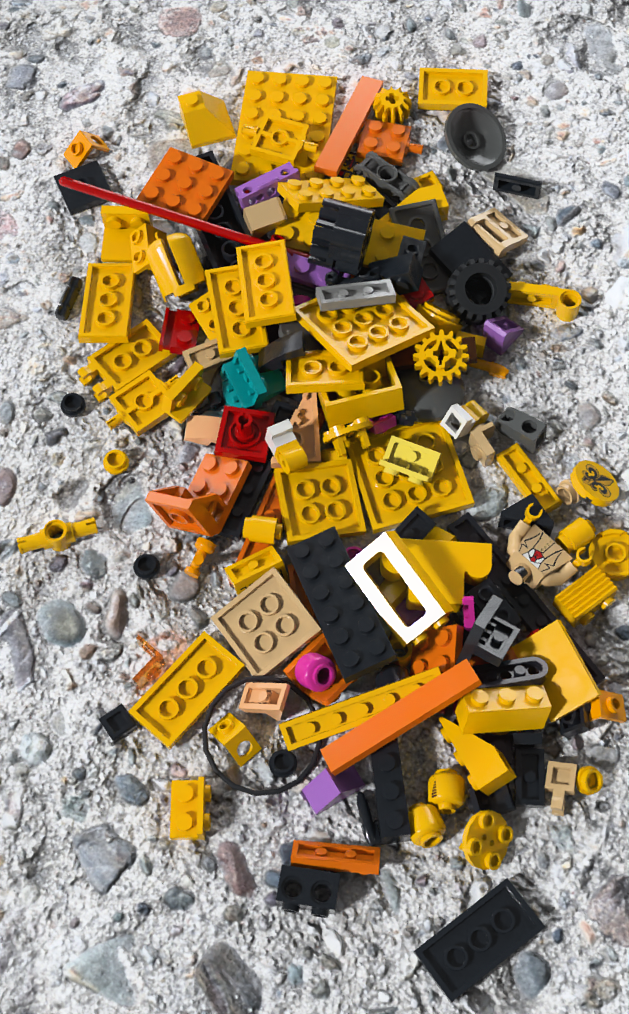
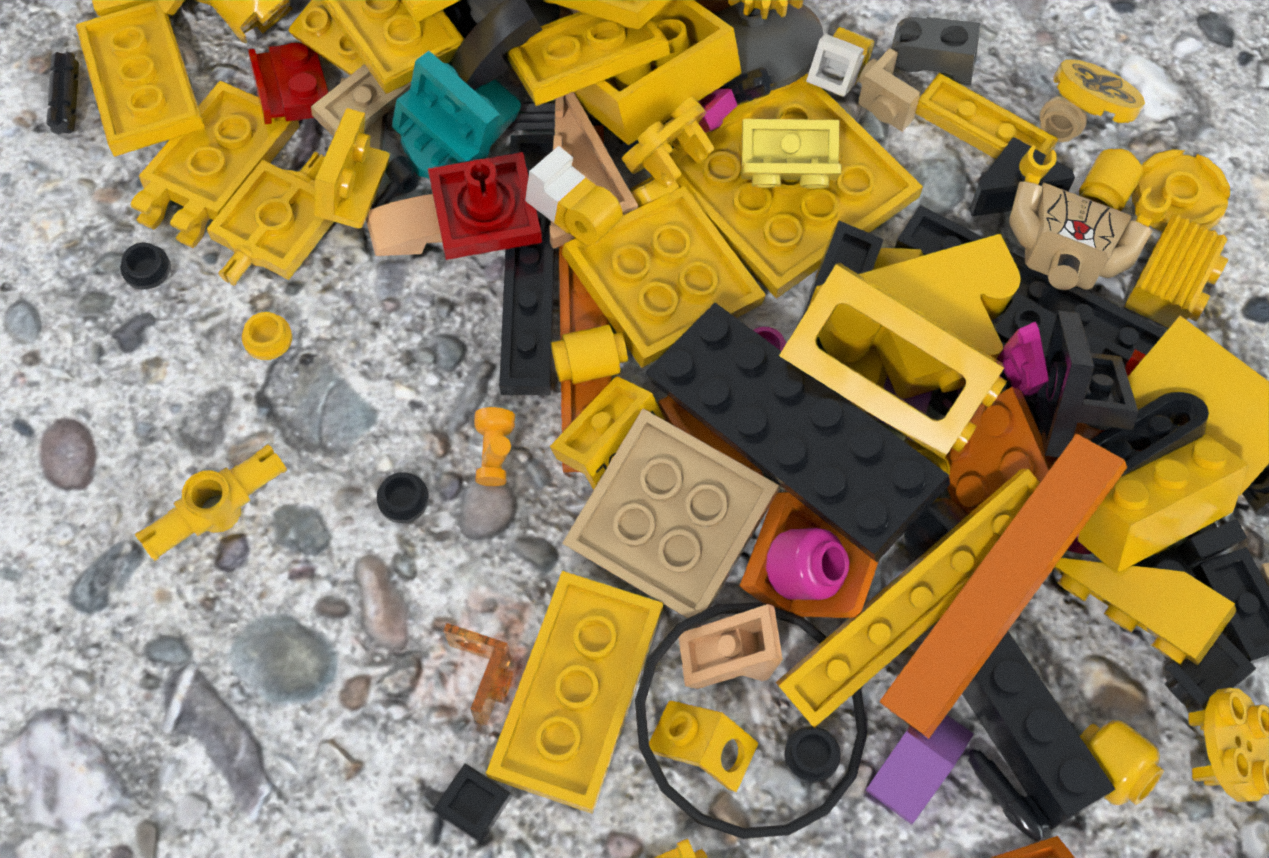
camera: 25 degrees left, 0 degrees up
(208, 499) = (463, 338): orange bracket -> none
(446, 790) = (1124, 685): yellow head -> none

